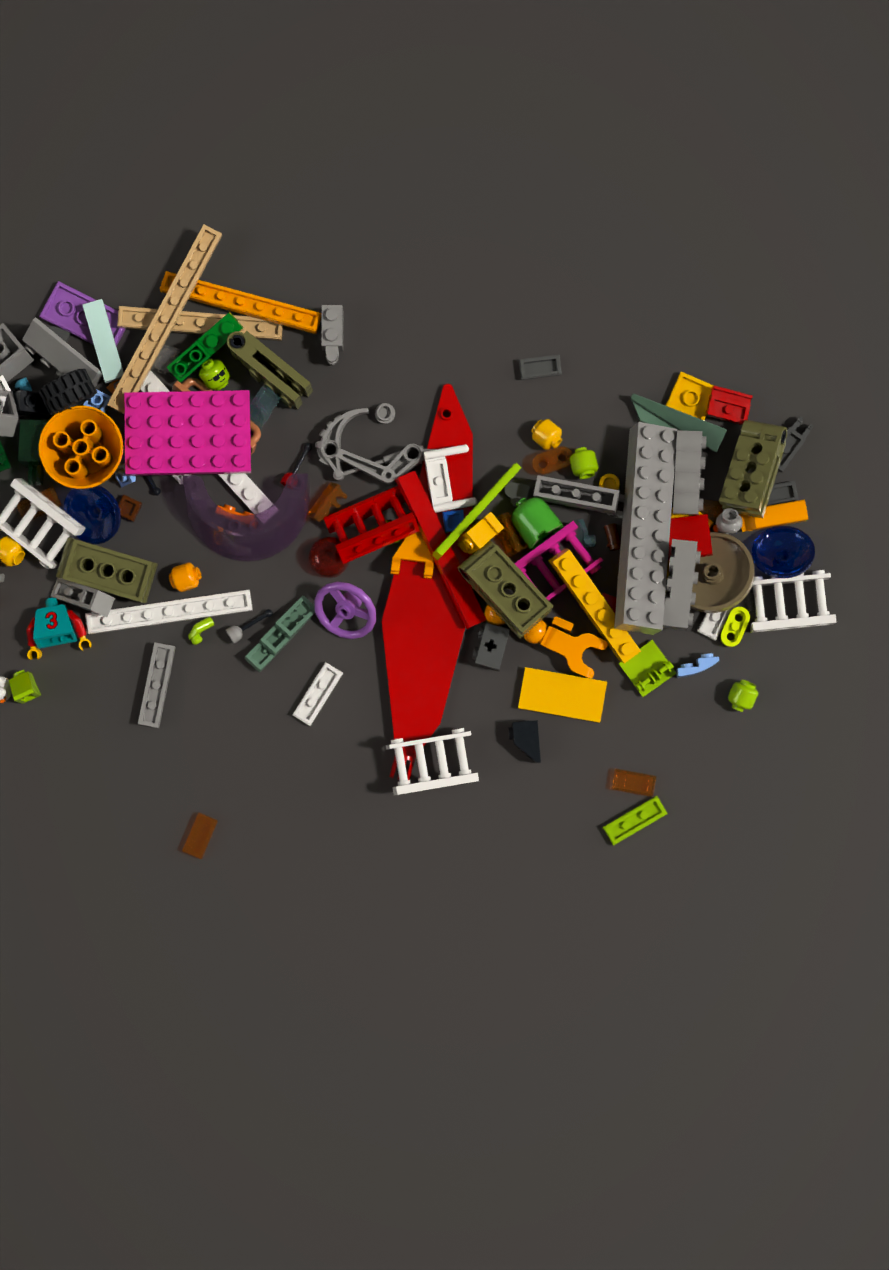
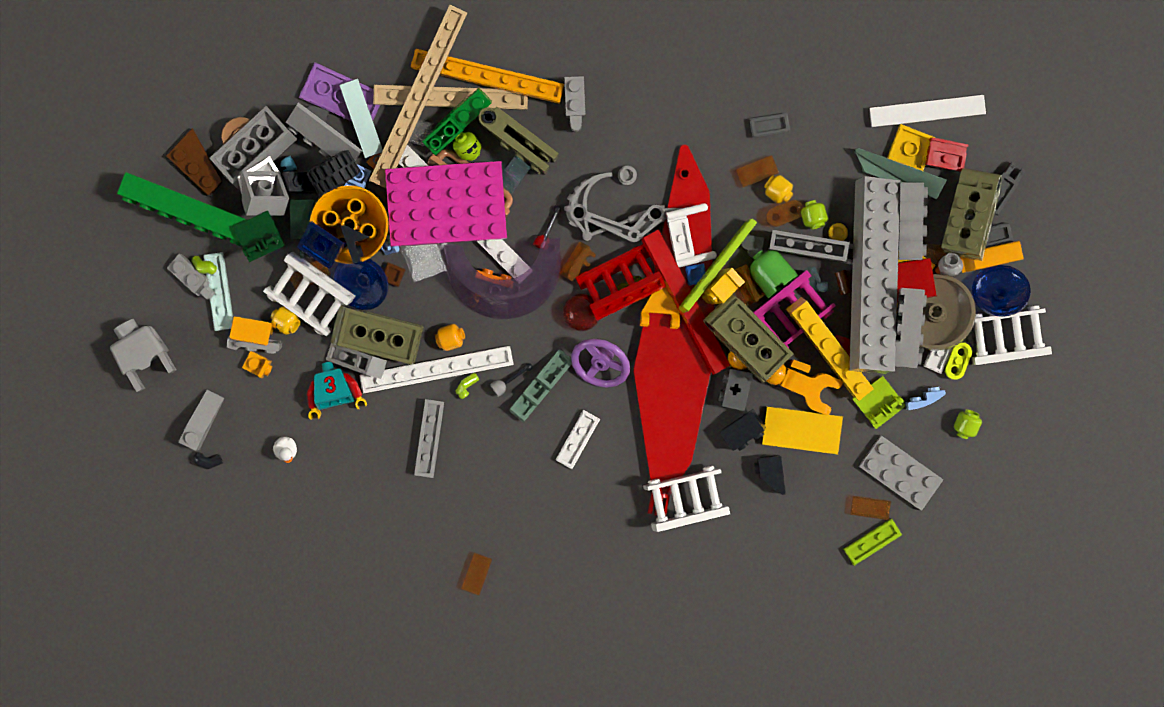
camera: 10 degrees left, 5 degrees up
(24, 687) = (307, 445): lime slope -> none
(48, 465) = (321, 245): none -> clear blue slope
(82, 460) = (352, 237): none -> black slope
(161, 493) = (424, 260): none -> clear piece
(497, 690) = (743, 430): none -> black brick
(524, 415) = (757, 171): none -> clear orange plate
(668, 746) = (901, 473): none -> light grey plate
(710, 359) = (927, 111): none -> white tile

